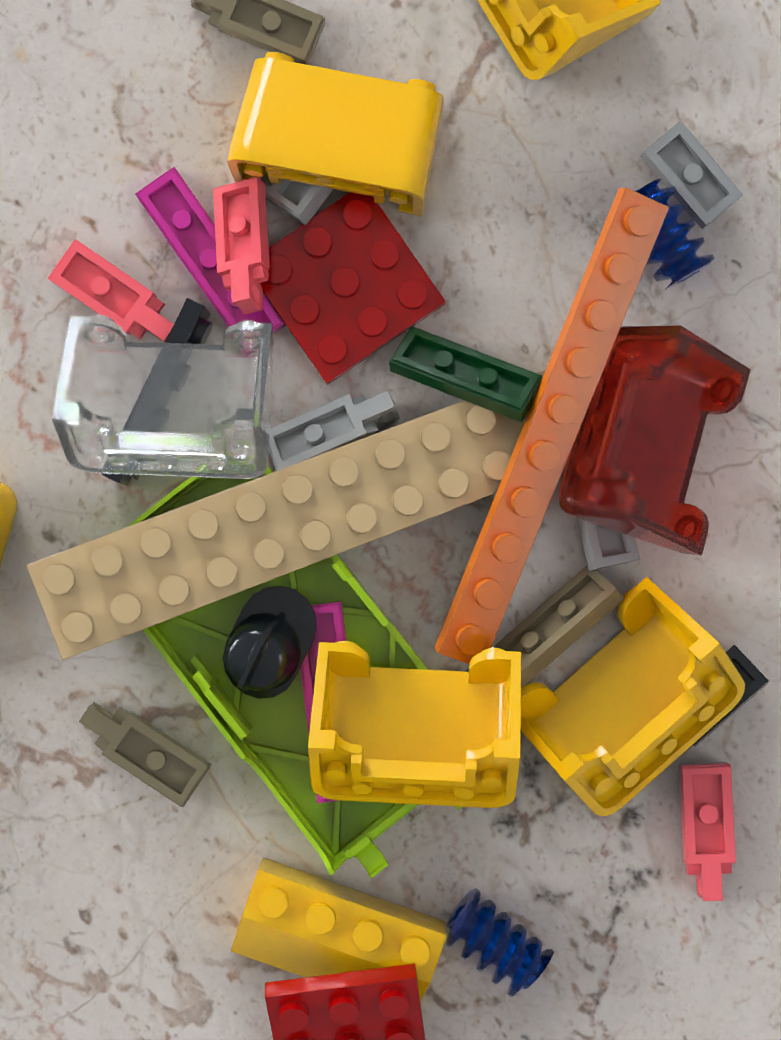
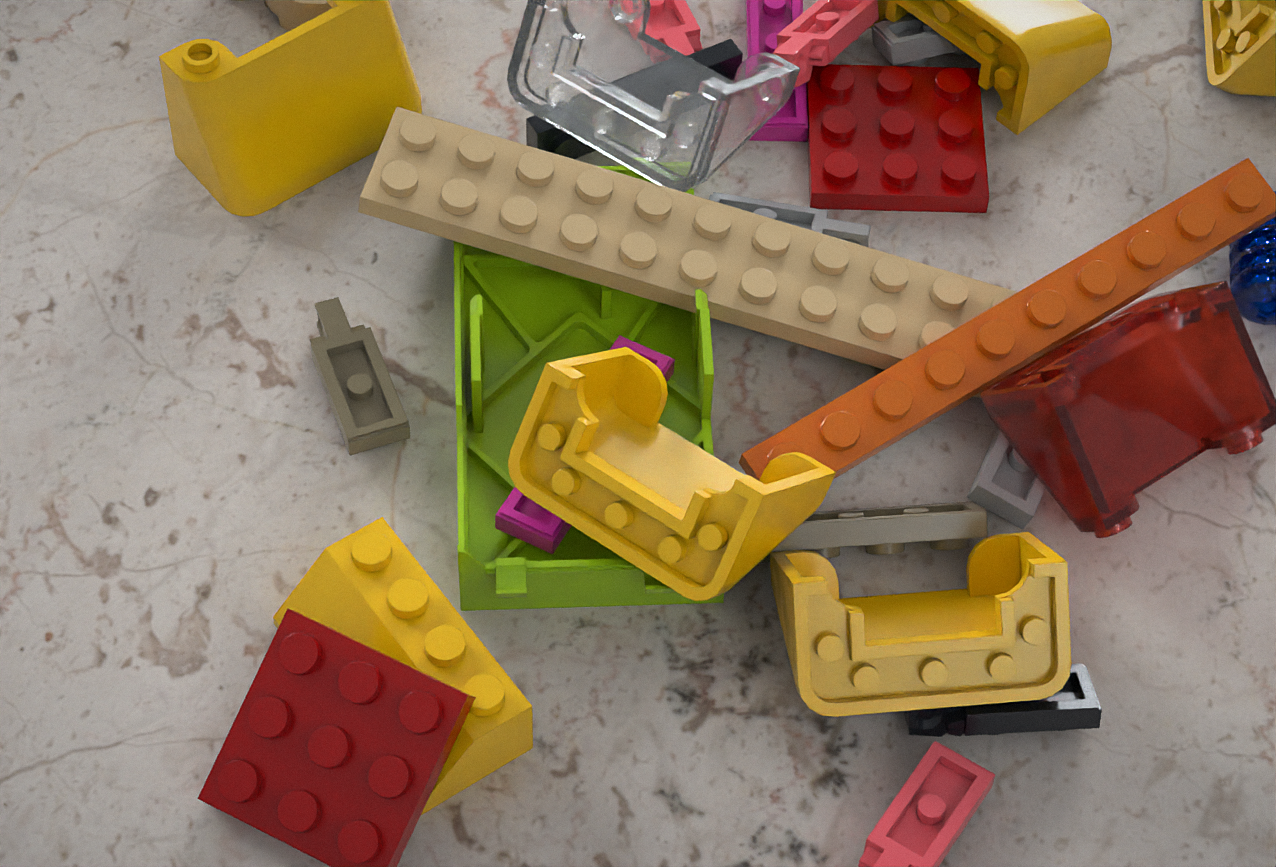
camera: 30 degrees right, 35 degrees down
(269, 641) = (557, 332): black piece -> none
(466, 373) = (961, 248): dark green tile -> none
(497, 942) = (577, 781): clear blue piece -> none

